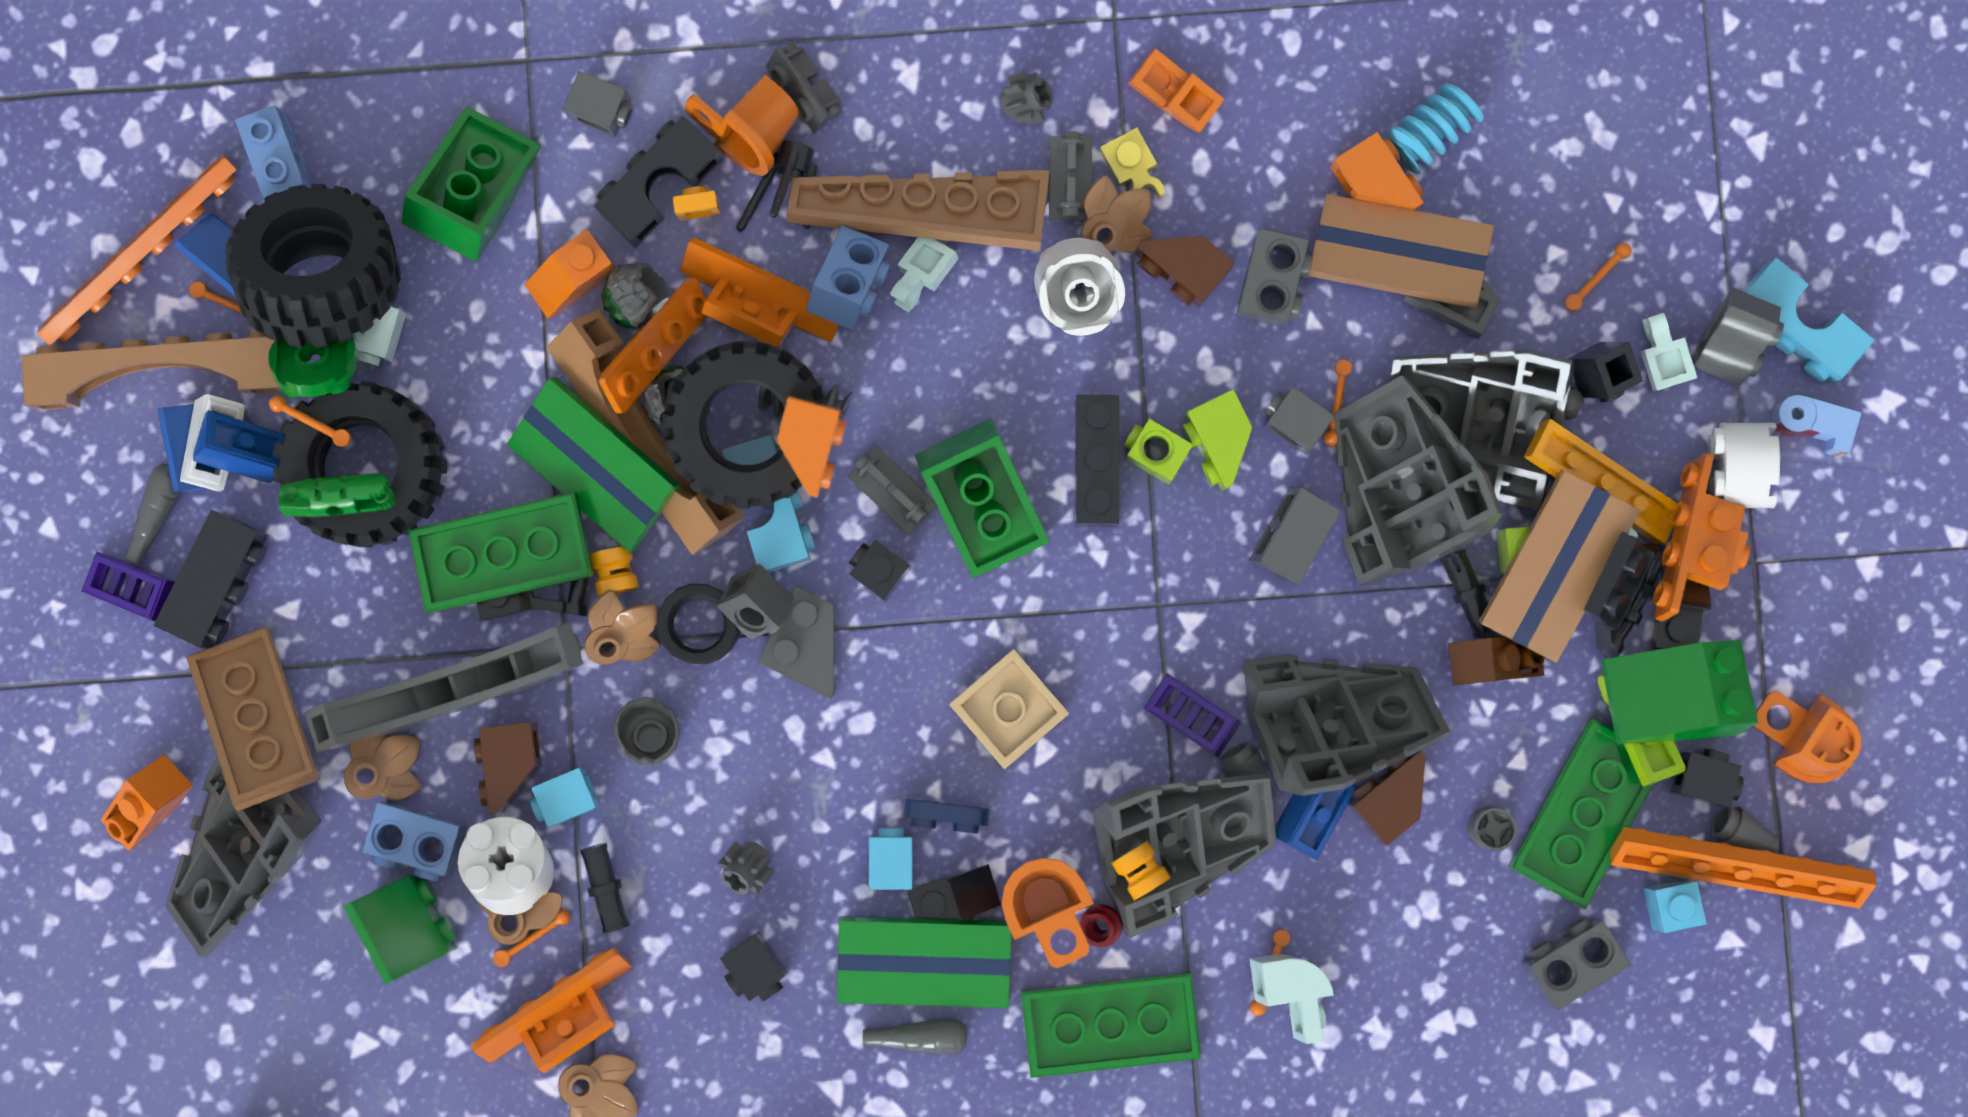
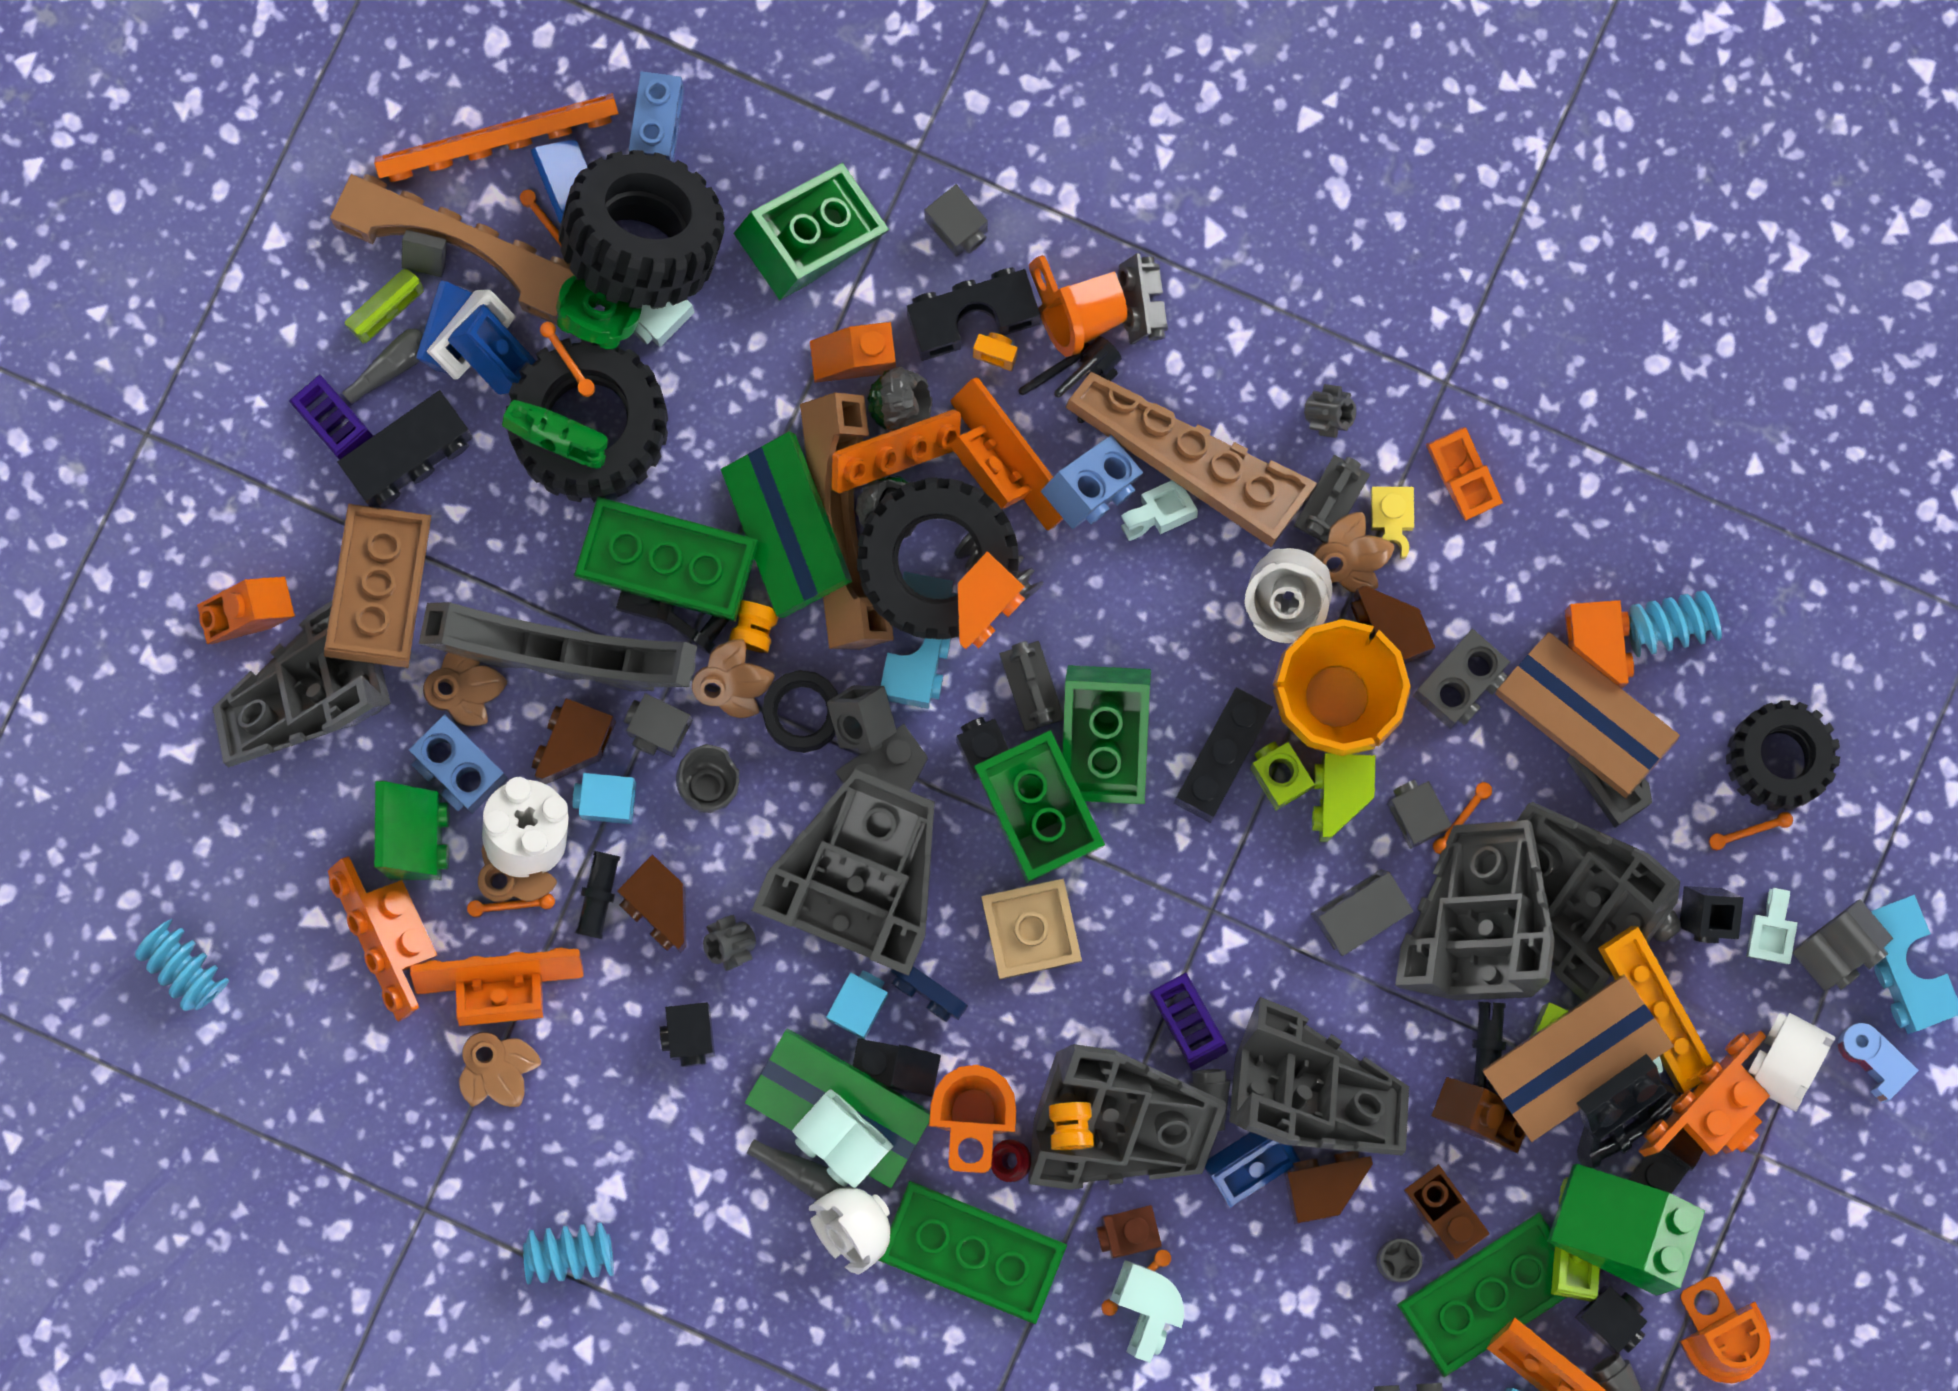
camera: 25 degrees right, 5 degrees down
(121, 458) = (384, 305): none -> lime slope
(129, 391) = (423, 253): none -> dark grey tile
(434, 1022) = (387, 931): none -> orange bracket
(574, 708) = (656, 726): none -> dark grey brick
(662, 863) = (660, 899): none -> reddish brown slope
(828, 745) = (859, 873): none -> dark grey wedge
(942, 991) = (841, 1139): none -> light aqua brick
(958, 597) = (1039, 806): none -> green slope
(993, 1061) = (852, 1225): none -> white cylinder
(1173, 345) = (1341, 687): none -> light orange plate
(1240, 932) = (1129, 1232): none -> copper bracket
(1513, 765) = (1445, 1213): none -> reddish brown slope
(1613, 166) = (1811, 736): none -> black tyre

